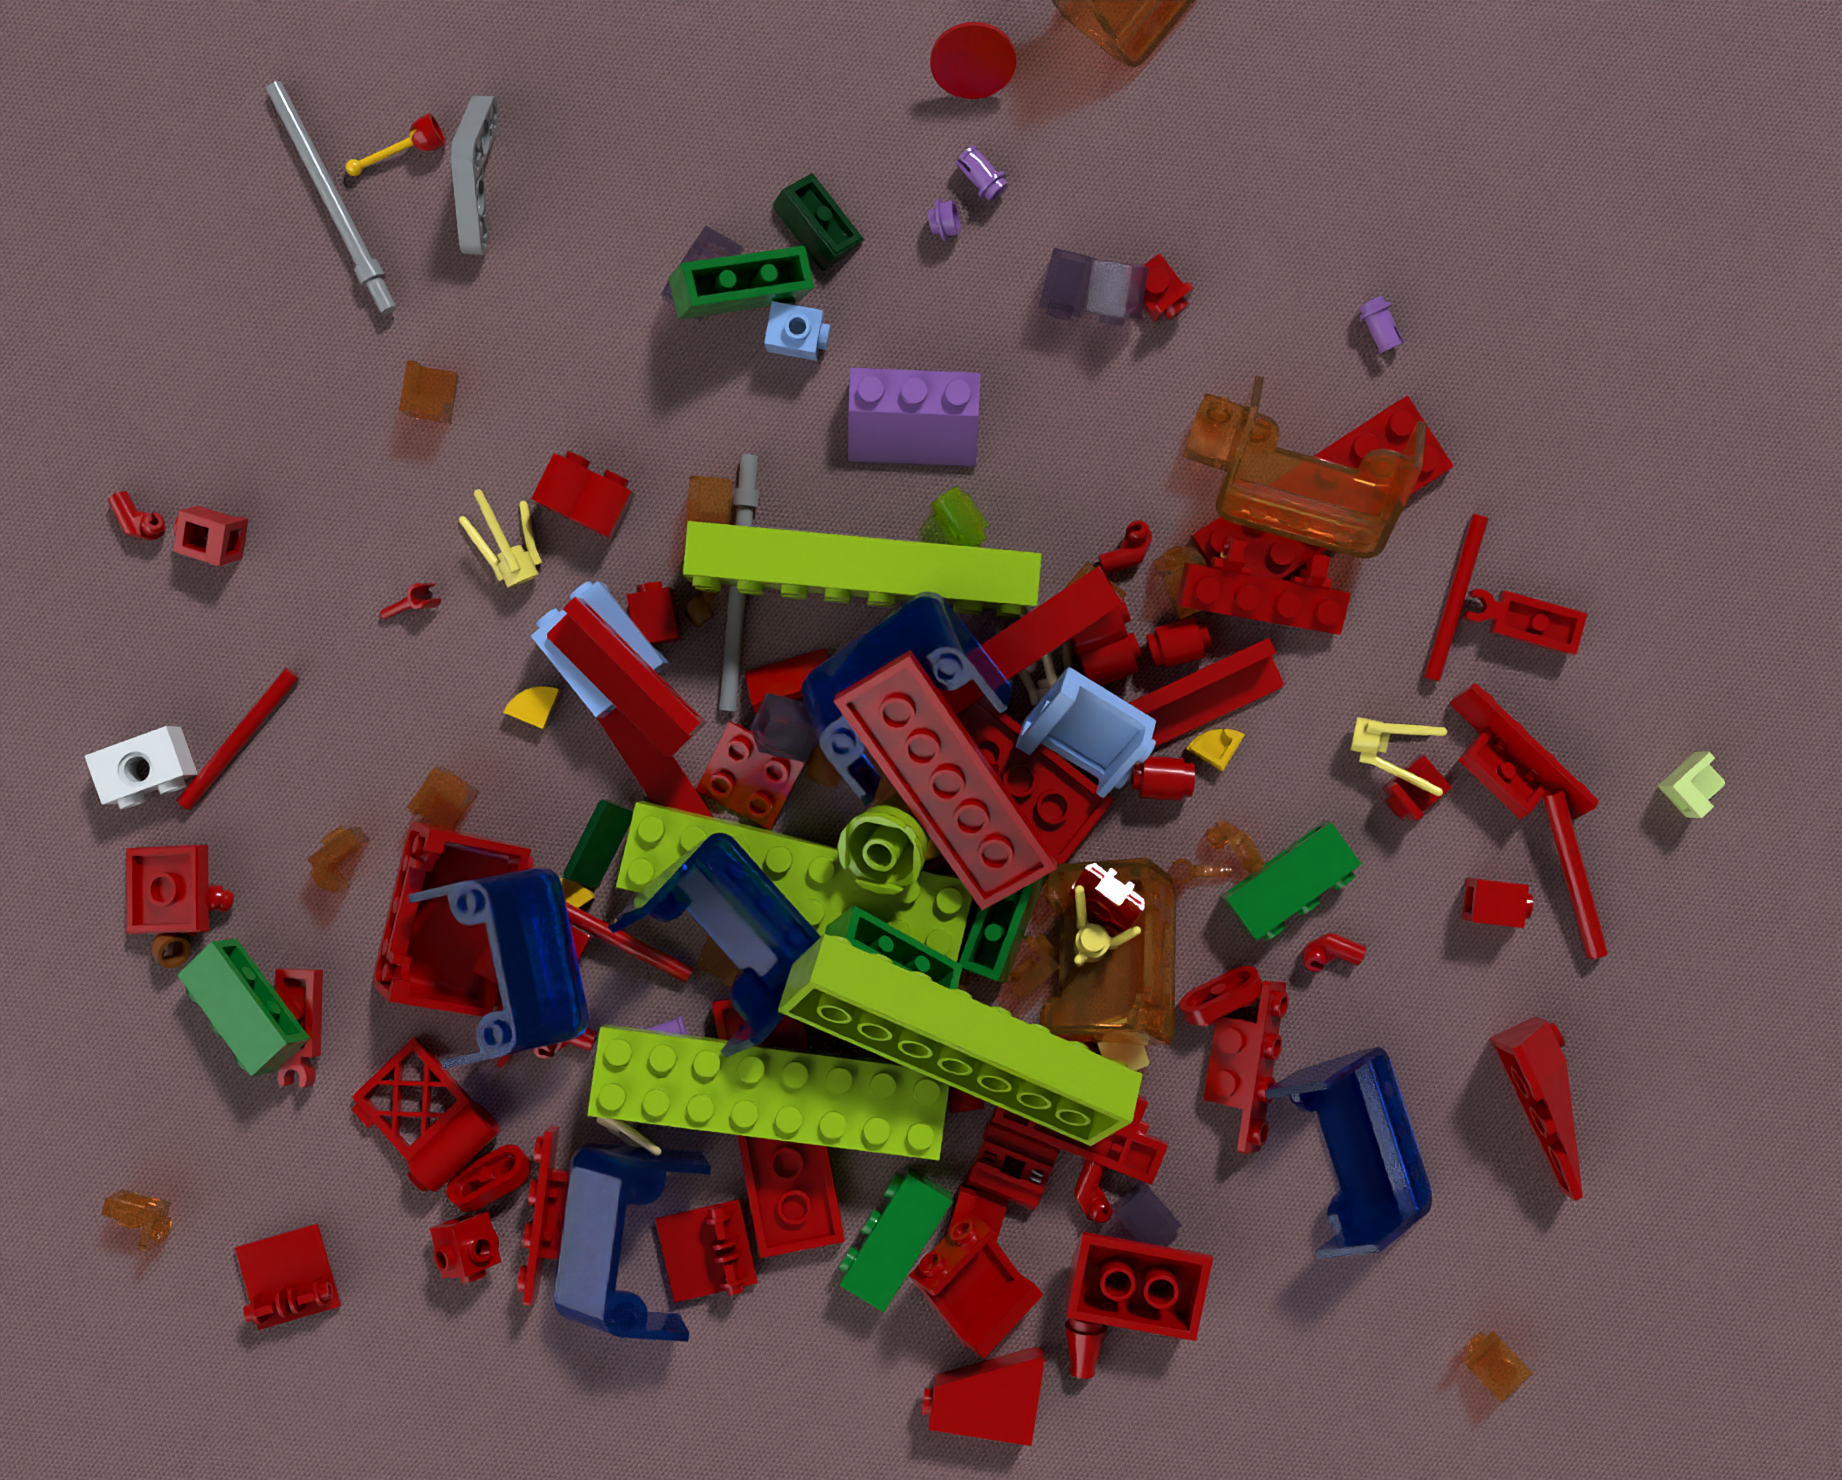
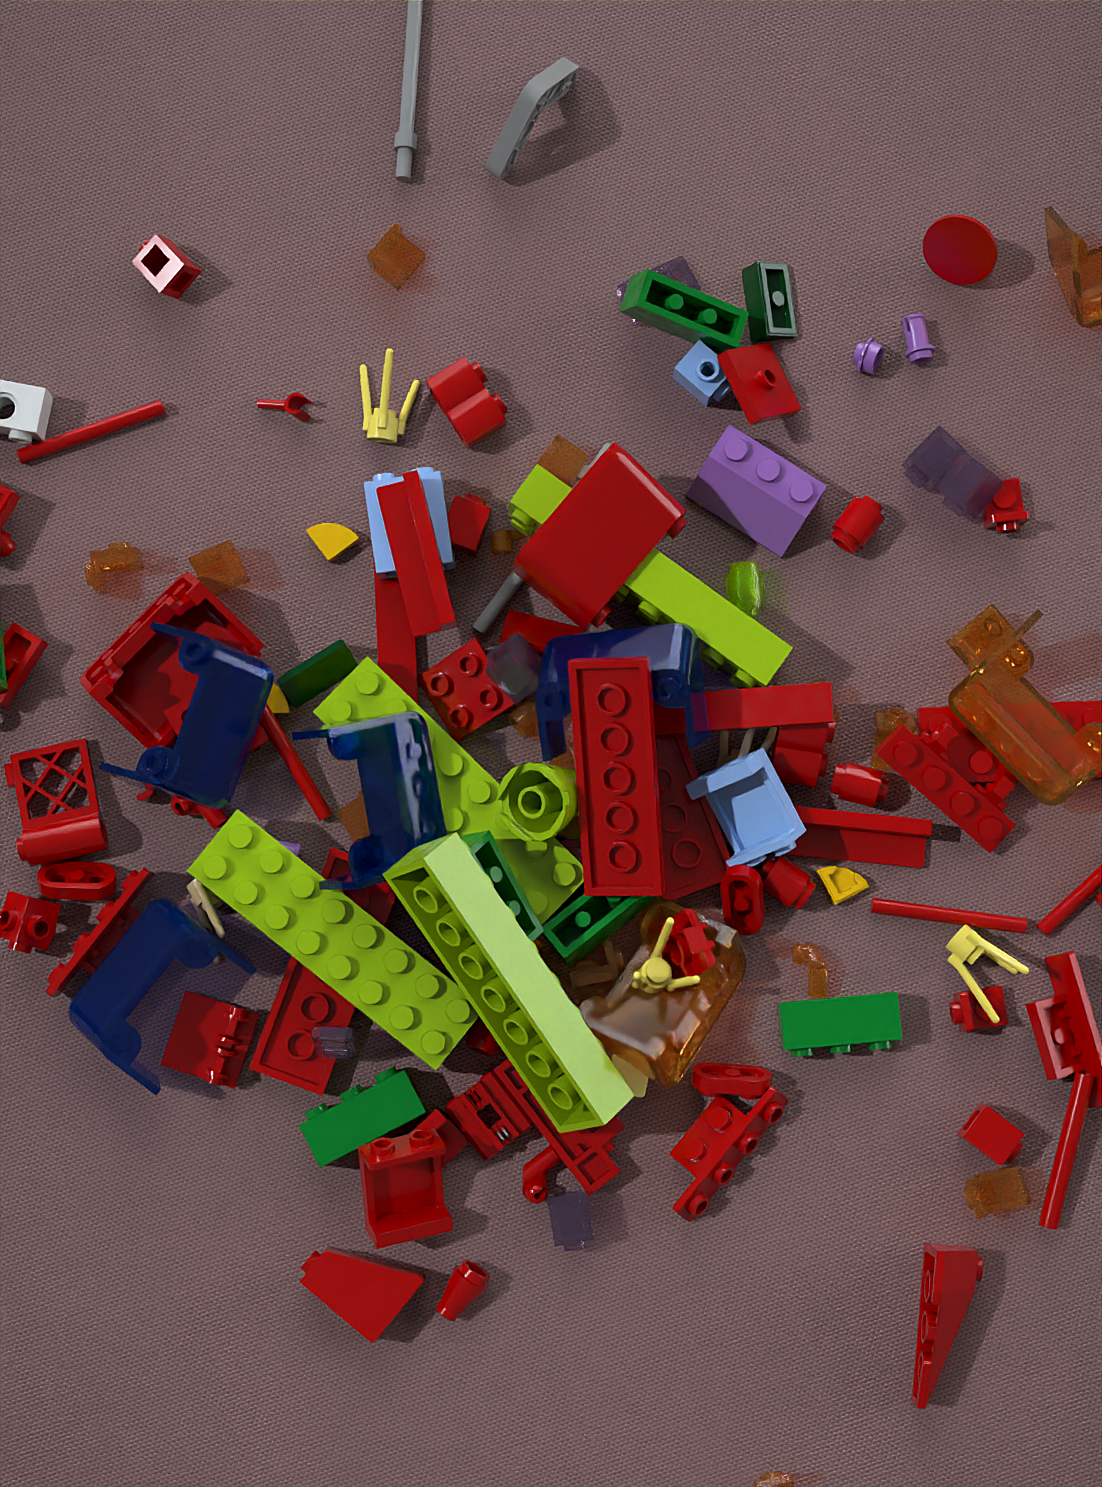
camera: 30 degrees right, 5 degrees down
(134, 522) = (114, 224): red arm -> none
(423, 134) = (509, 64): hinge -> none
(791, 556) = (599, 537): none -> red windscreen
(826, 1185) = (335, 1041): none -> slope
(855, 309) = (759, 383): none -> red plate
(1030, 391) = (857, 524): none -> red brick
(1131, 551) = (864, 692): red arm -> none
(1133, 820) = (741, 892): none -> red plate
(1137, 1286) = (532, 1265): red slope -> none
(1201, 871) = (772, 973): clear orange hand -> none
(1329, 947) = (838, 1093): red arm -> none
(1335, 717) = (948, 915): none -> red bar
(1369, 1147) = (778, 1267): clear blue windscreen -> none
(1531, 951) = (996, 1190): none -> clear orange bracket

